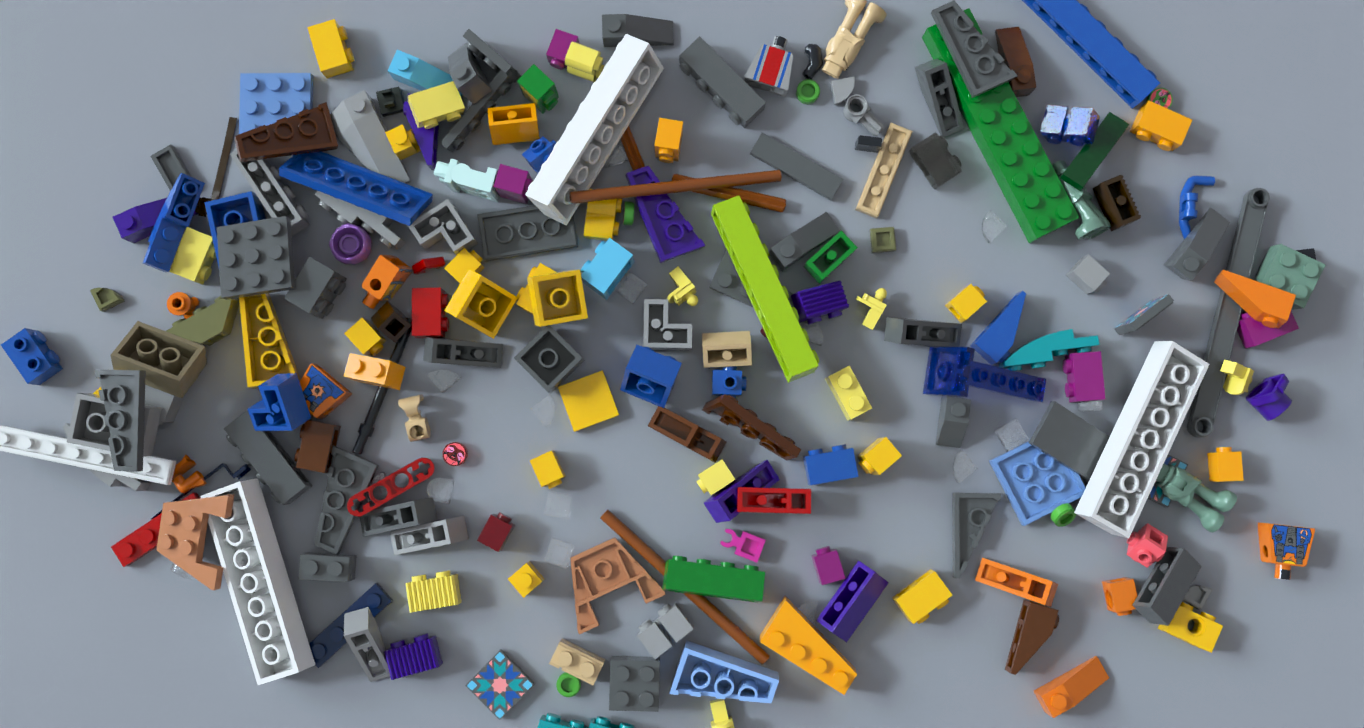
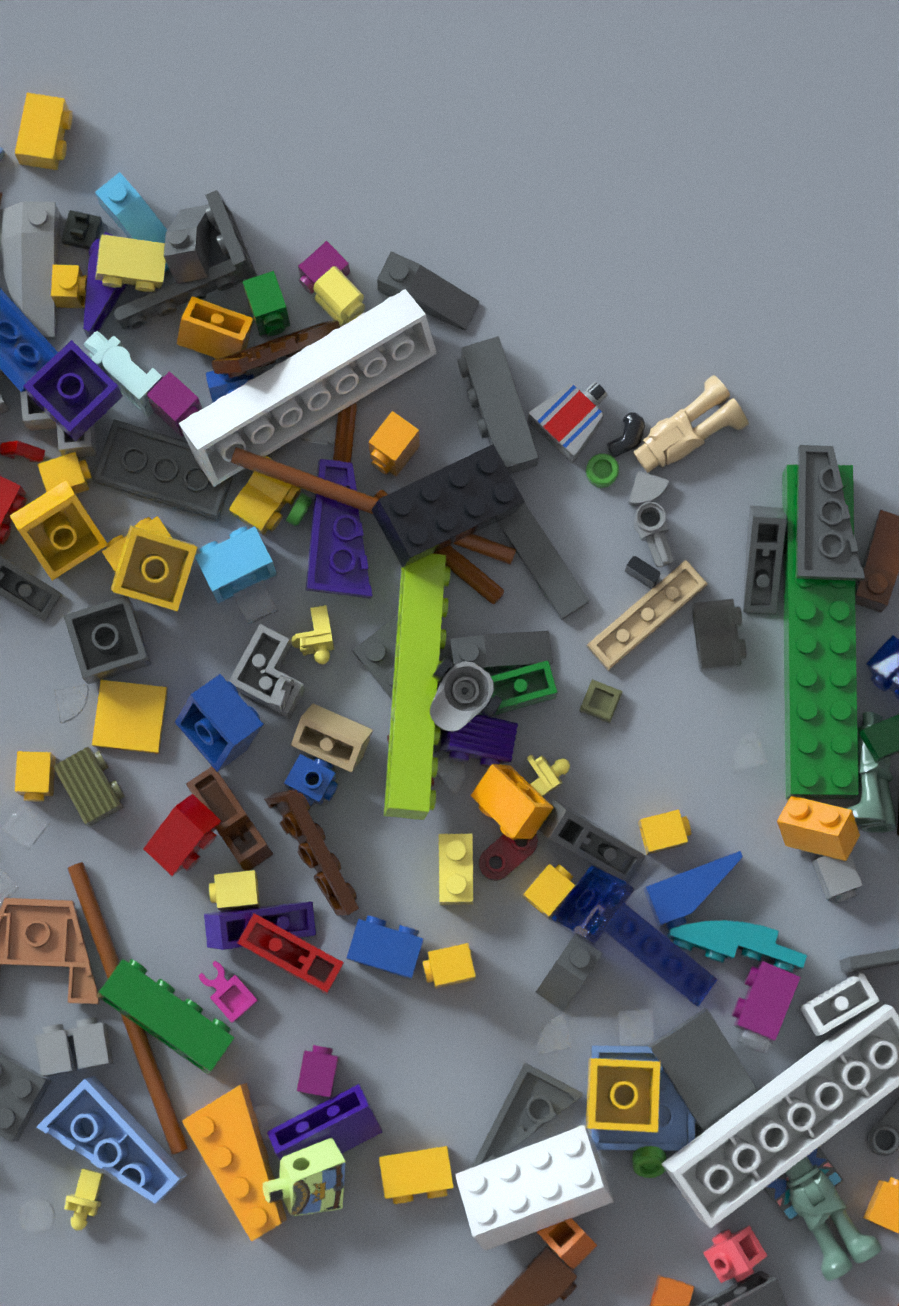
camera: 30 degrees right, 5 degrees down
(444, 207) = (73, 390): none -> dark purple brick
(561, 114) = (267, 352): none -> reddish brown wing
(586, 458) = (89, 786): none -> olive brick
(664, 460) = (182, 835): none -> red brick
(682, 336) = (281, 693): none -> light grey tile
(725, 162) = (447, 505): none -> black brick
(800, 279) = (462, 695): none -> light grey cap
(861, 637) = (309, 1180): none -> yellowish green torso
(863, 332) = (511, 802): none -> light orange brick
(873, 364) = (509, 853): none -> dark red plate
(913, 376) = (549, 889): none -> yellow brick
(1004, 569) = (534, 1188): none -> white brick
(1030, 483) = (623, 1095): none -> yellow brick
(1065, 251) = (818, 828): none -> light orange brick
(1132, 356) = (839, 1004): none -> white brick

